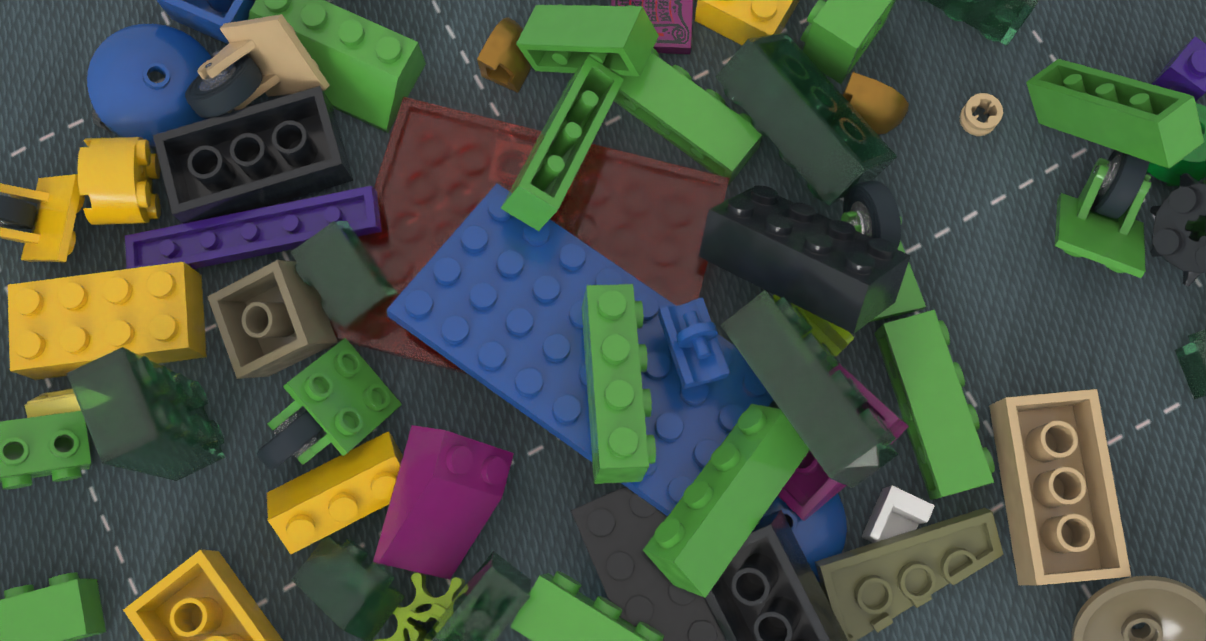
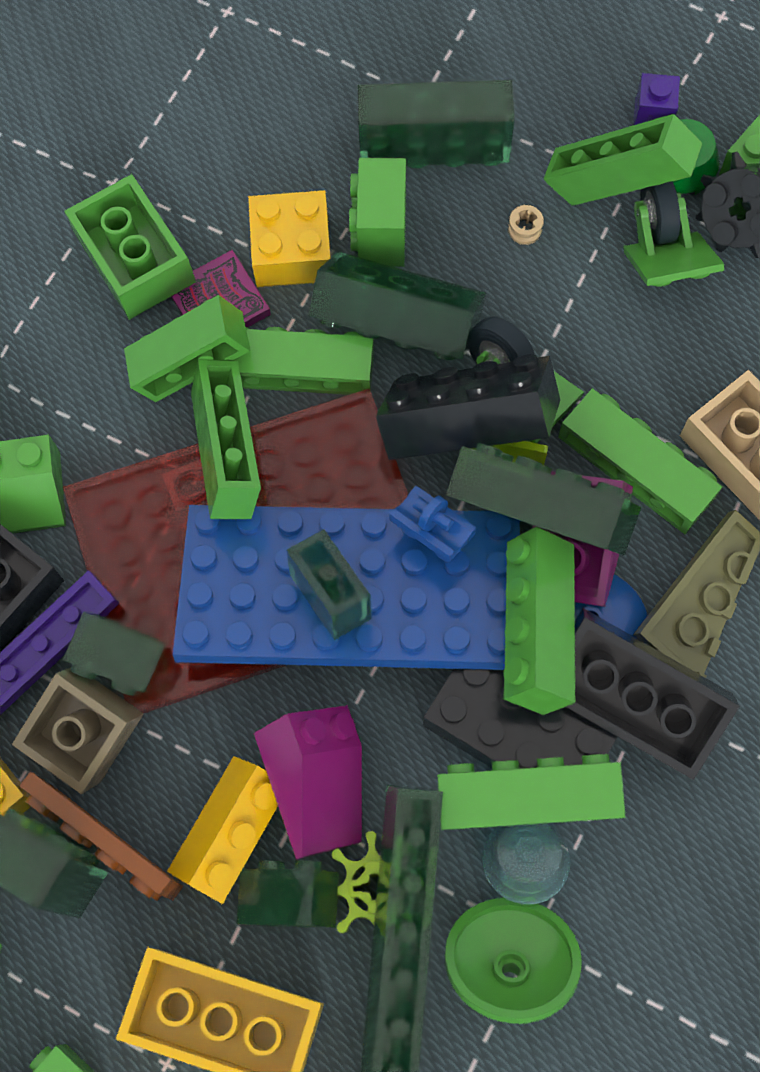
camera: 35 degrees left, 5 degrees down
(231, 432) = (88, 830): none -> dark orange plate
(339, 397) = (178, 754): bright green plate -> none
(502, 59) = (125, 407): pearl gold brick -> none
(559, 338) = (329, 584): none -> brick
(615, 384) = (399, 595): bright green brick -> none
(876, 102) = (441, 262): pearl gold brick -> none
(896, 514) = (667, 559): white panel -> none

